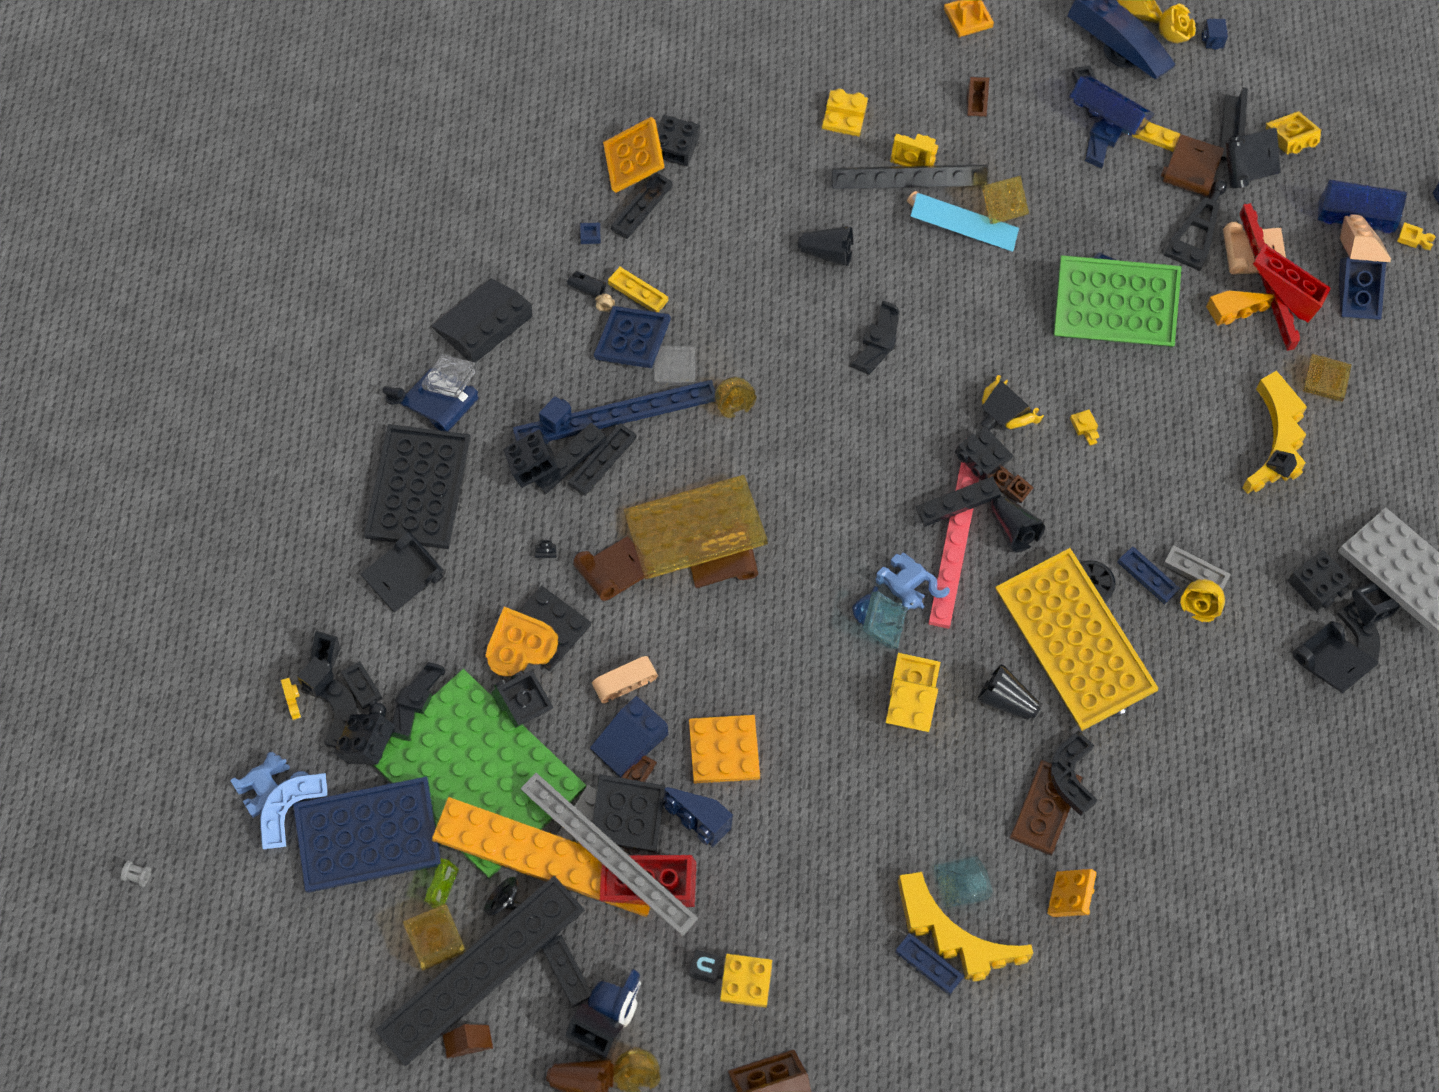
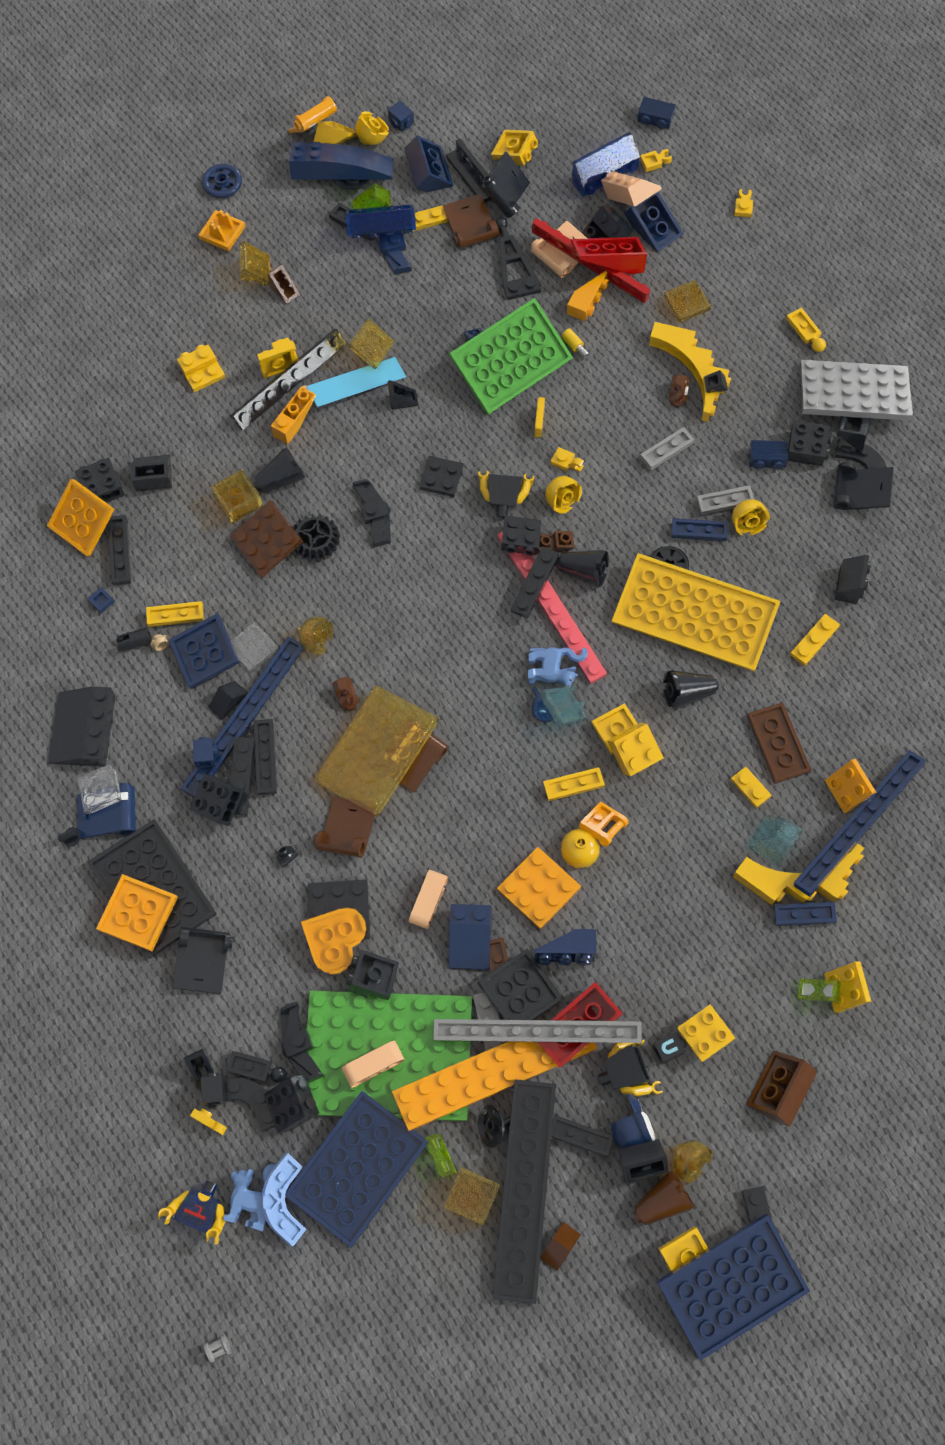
camera: 35 degrees left, 5 degrees up
(218, 757) = (198, 1211): none -> torso
(387, 493) = (137, 913): none -> light orange plate
(455, 765) = (372, 1064): none -> light nougat beam
(616, 389) = (227, 698): none -> black slope
(654, 953) = (627, 1071): none -> black torso
(714, 462) = (345, 693): none -> reddish brown rock
(724, 164) = (151, 472): none -> black slope
(767, 288) = (266, 538): none -> reddish brown plate
(774, 236) = (236, 496): none -> clear yellow brick
(789, 746) = (579, 848): none -> yellow cylinder
(808, 326) = (309, 529): none -> black gear
(829, 736) = (597, 821): none -> light orange plate
(833, 691) = (573, 784): none -> yellow plate
(878, 1033) = (819, 990): none -> clear neon green piece
(882, 208) = (293, 415): none -> light orange slope
(905, 1052) = (852, 987): none -> yellow plate
(964, 354) = (441, 476): none -> black plate
(968, 61) = (254, 264): none -> clear yellow plate
(985, 823) = (751, 787): none -> yellow plate
(991, 262) = (401, 396): none -> black slope
(1050, 929) = (859, 824): none -> dark blue plate
(1053, 446) = (562, 493): none -> yellow cylinder
(1064, 774) = (771, 710): black plate -> none
(1095, 372) = (539, 417): none -> yellow tile
(1124, 82) = (373, 197): none -> clear neon green slope
(1164, 750) = (815, 639): none -> yellow plate
(1185, 486) = (667, 448): none -> light grey plate
(1188, 334) = (574, 342): none -> yellow piece
(1200, 91) = (427, 165): none -> dark blue slope
(1244, 446) = (678, 390): none -> reddish brown rock
(1245, 726) = (852, 579): none -> black slope
(1274, 562) = (768, 454): none -> dark blue brick
(1315, 258) = (607, 224): none -> black slope
(1416, 485) = (806, 329): none -> yellow plate

